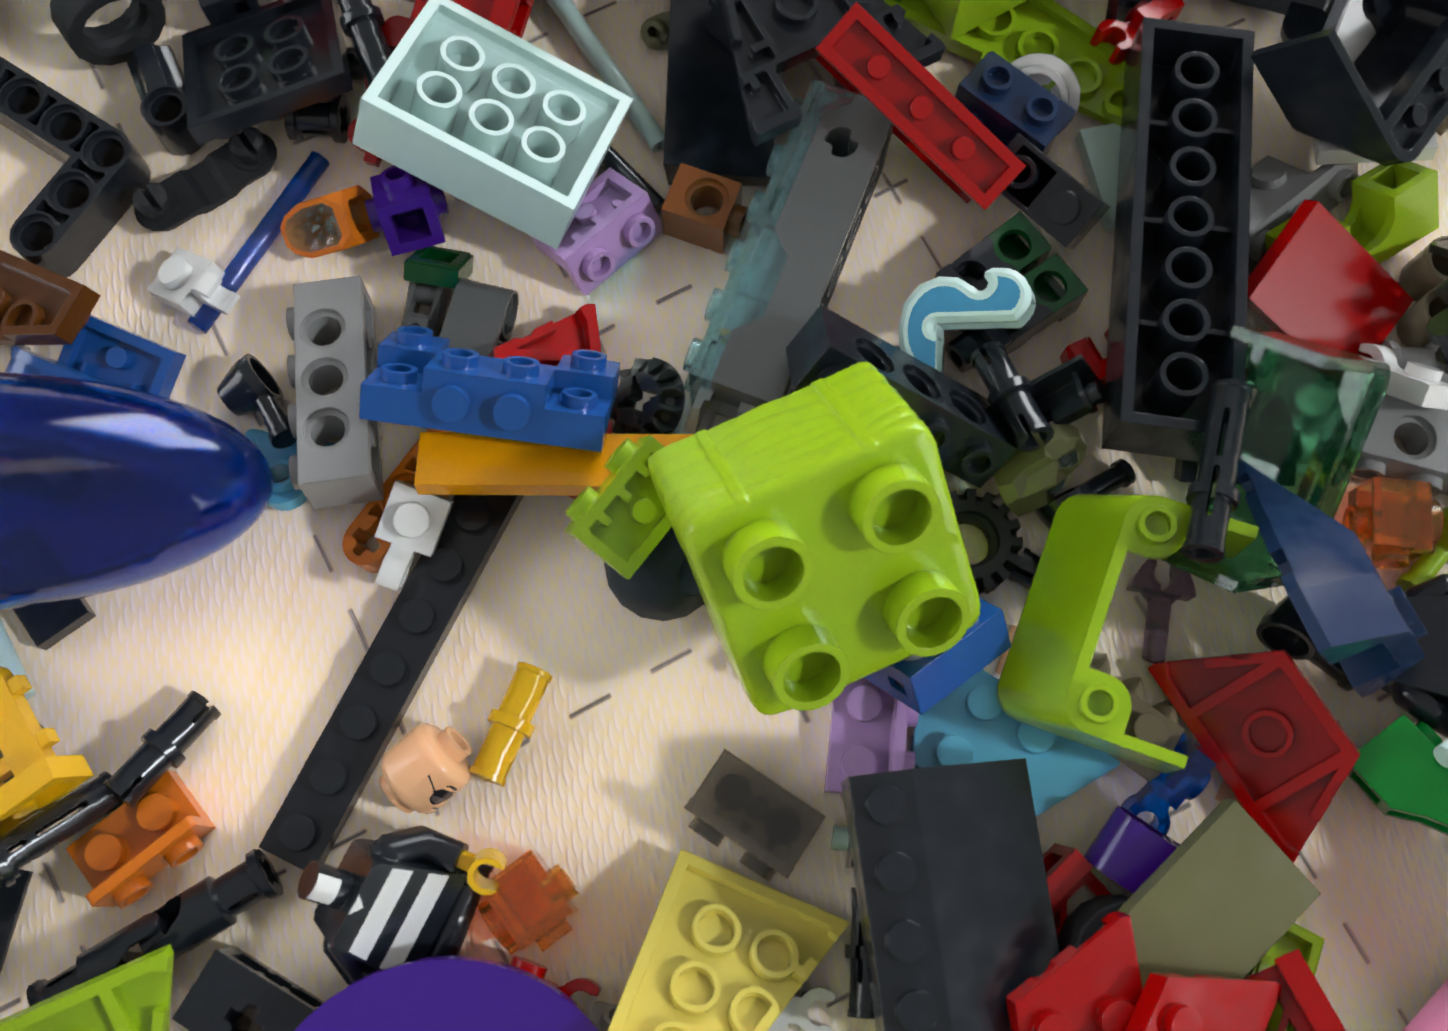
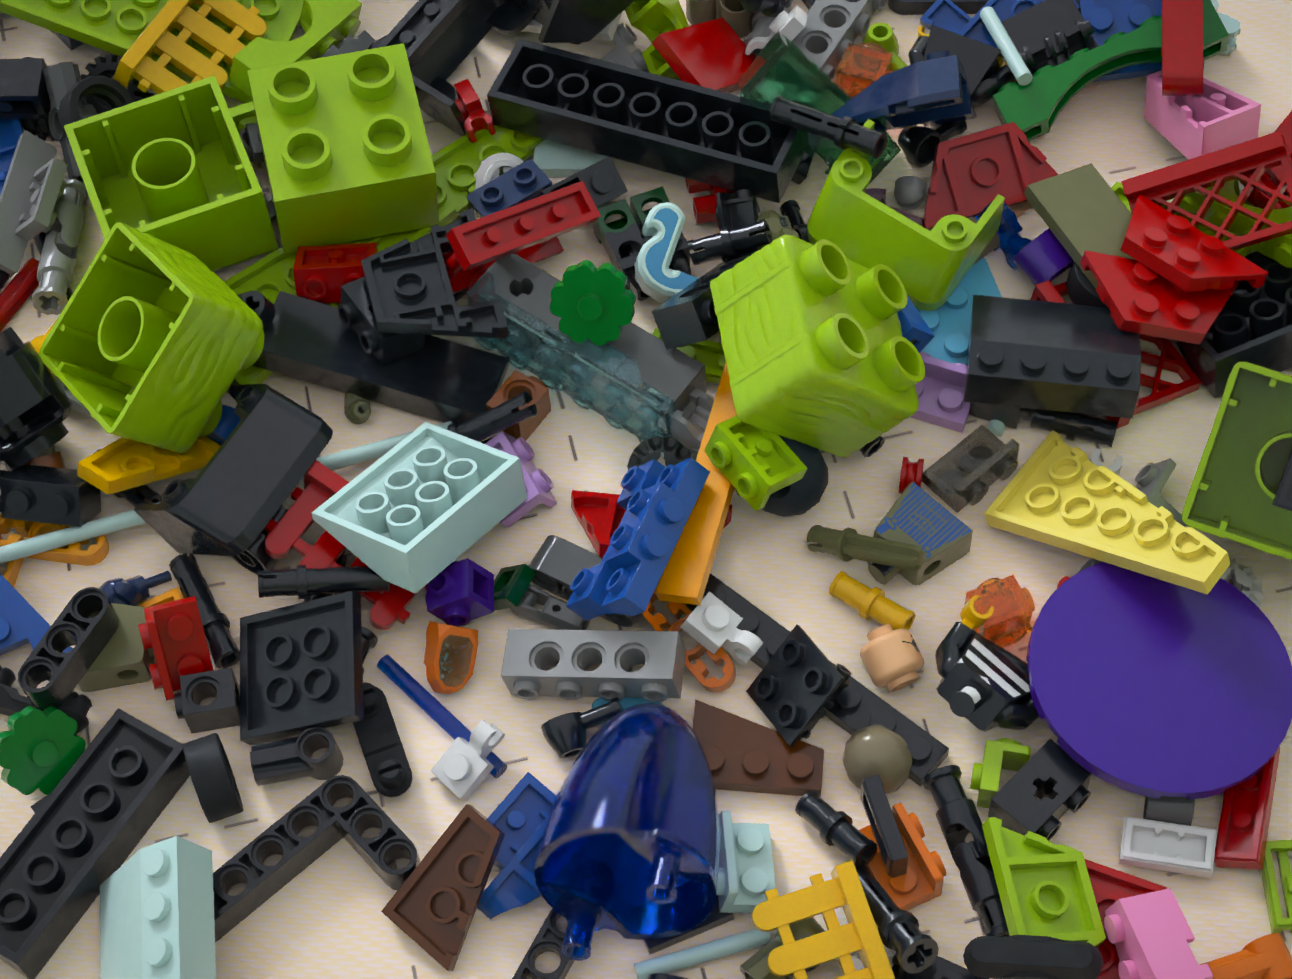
camera: 70 degrees left, 15 degrees down
(96, 642) = (744, 865): none -> light aqua bracket
(146, 811) = (884, 826): none -> black tile
(261, 618) = (754, 756): none -> reddish brown wing
(266, 778) = (875, 752): none -> dark tan hair
(274, 935) = (998, 755): none -> lime bracket
(346, 650) = (797, 686): none -> black hinge
(582, 674) = (850, 545): none -> olive axle
(619, 761) = (925, 523): none -> olive torso
(636, 153) = (495, 419): none -> black pin
(720, 734) = (910, 473): none -> red bush
(814, 224) = (592, 302): none -> green plant
(1201, 631) = (909, 192): none -> light grey hinge

